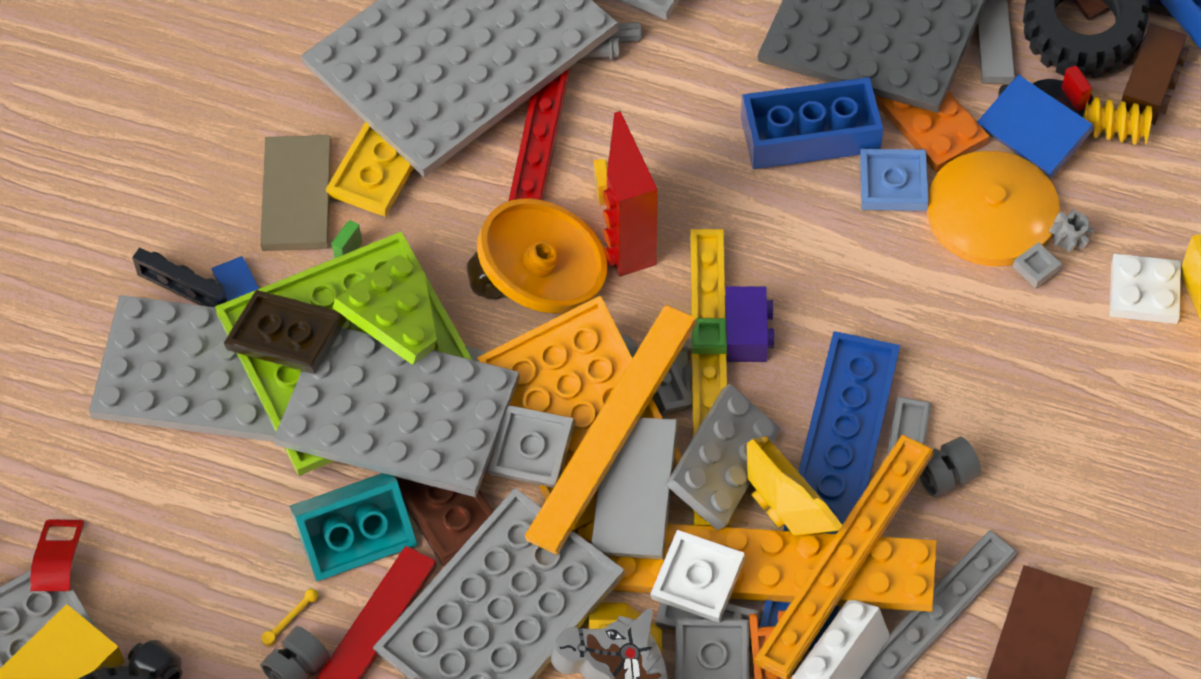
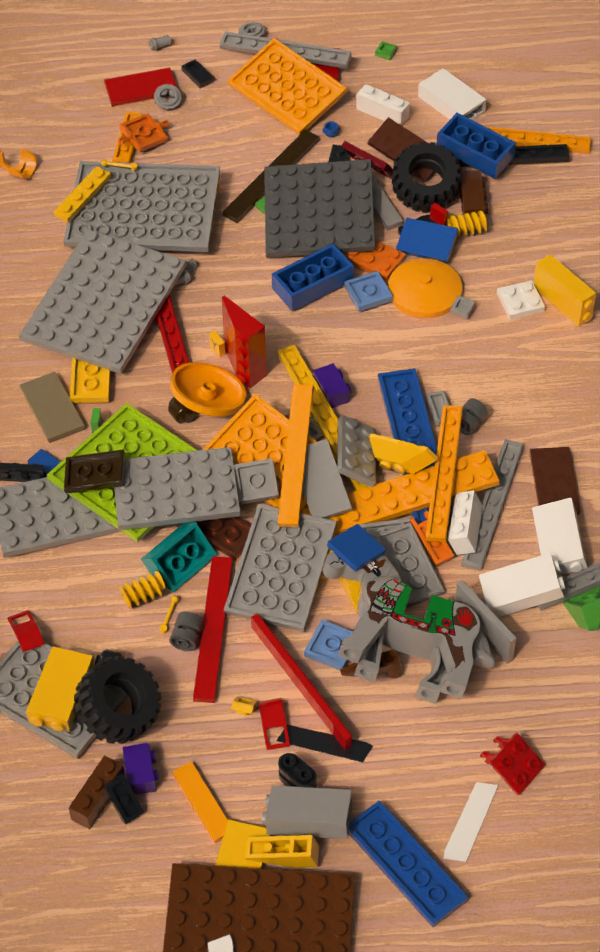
camera: 25 degrees left, 5 degrees down
(264, 561) = (141, 590): none -> yellow piece
(393, 308) = (149, 438): lime plate -> none
(619, 635) = (356, 547): none -> blue tile
(698, 576) = (376, 509): white plate -> none
(709, 336) = (319, 398): bright green tile -> none
(1071, 230) = (471, 284): light grey gear -> none

